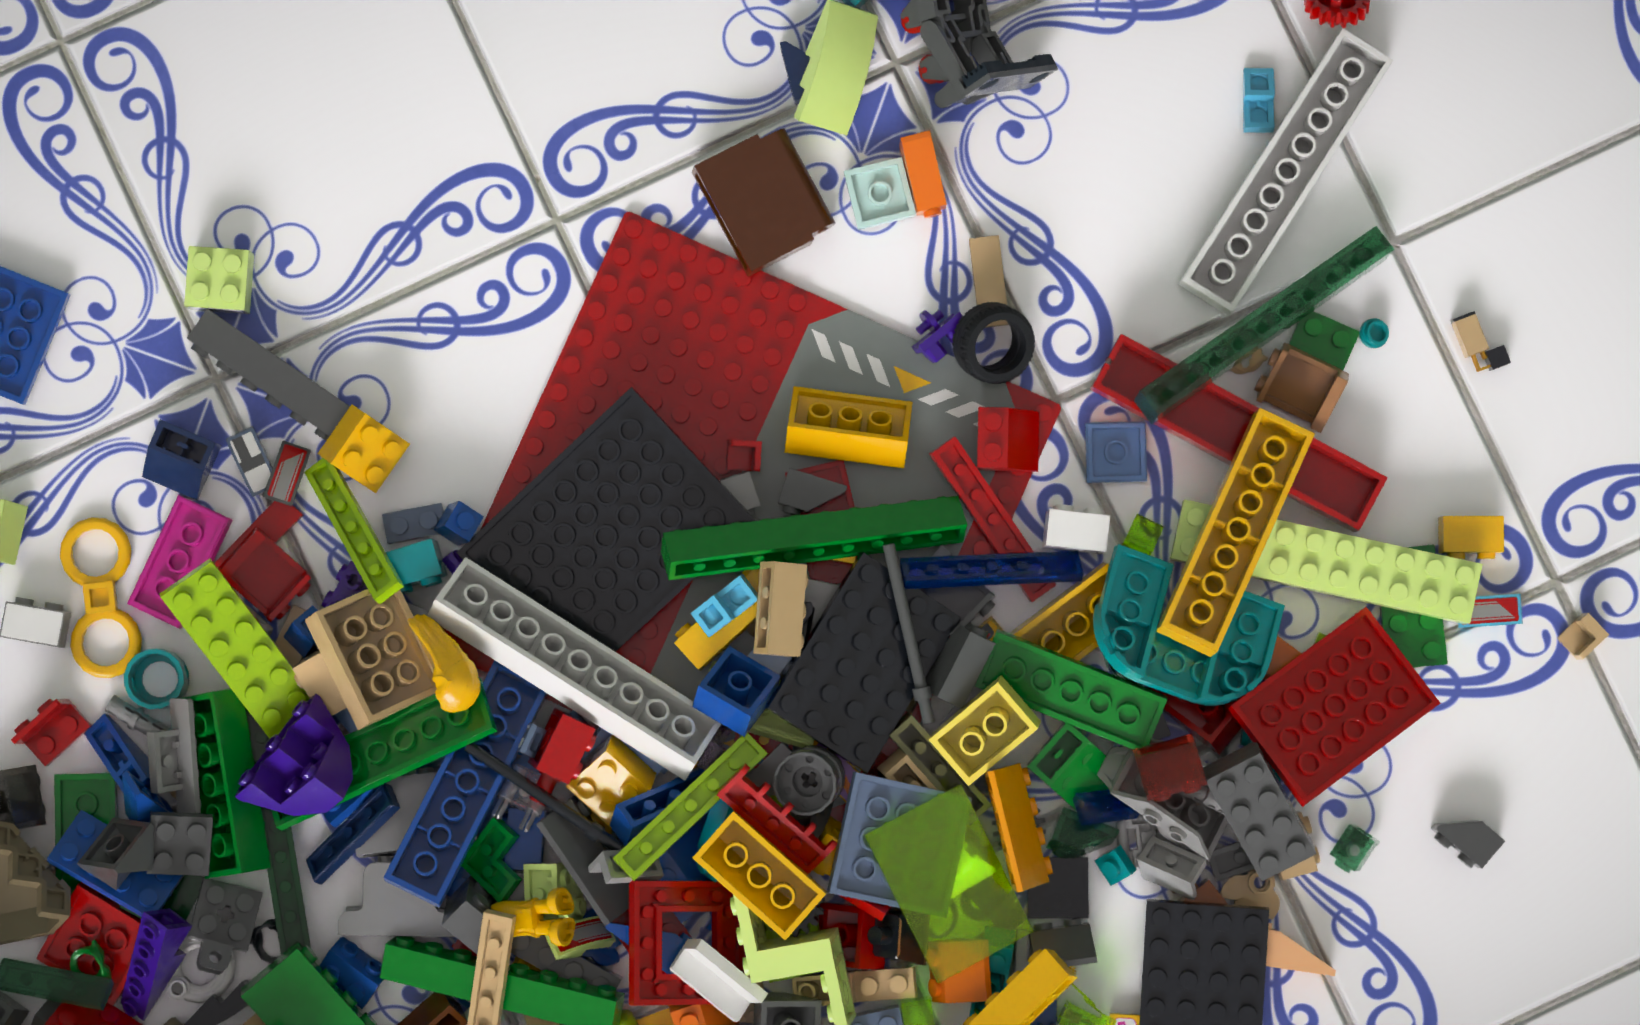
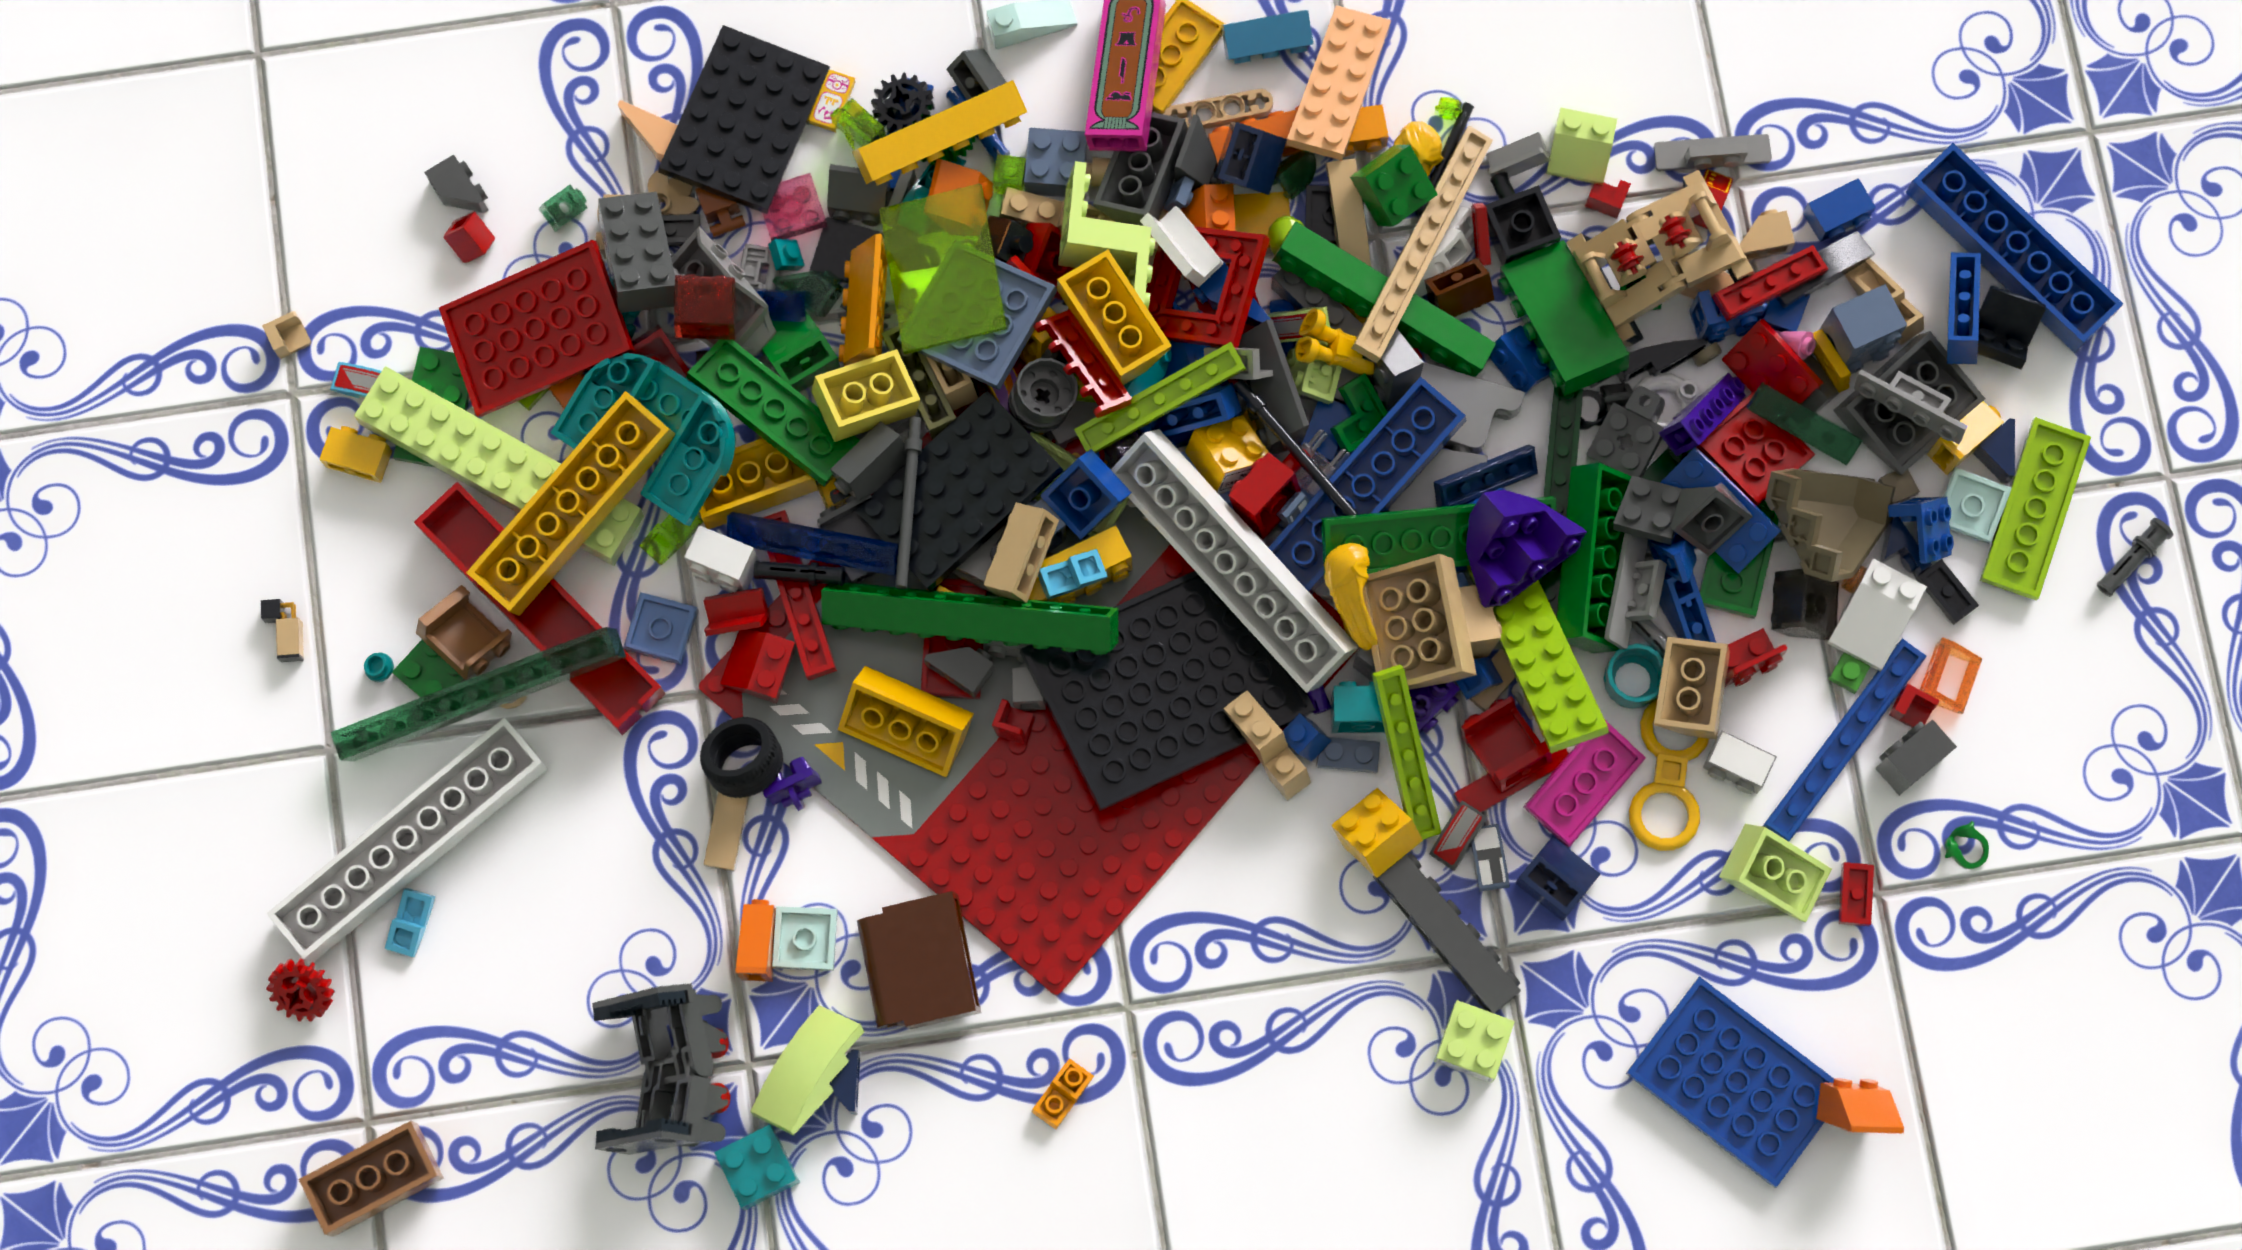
camera: 160 degrees left, 10 degrees down
(97, 679) = (1692, 687): none -> tan slope
(98, 953) = (1754, 436): green piece -> none
(247, 964) = (1616, 393): none -> dark grey slope
(492, 503) = (1269, 745): none -> tan arch
(593, 120) = (1062, 1093): none -> light orange slope
(960, 543) = (810, 573): none -> black pin
(1046, 484) = (735, 611): none -> red panel
(1121, 915) = (795, 209): none -> clear pink plate
(1171, 867) = (734, 233): light grey panel -> none
(1438, 790) = (469, 237): none -> red panel

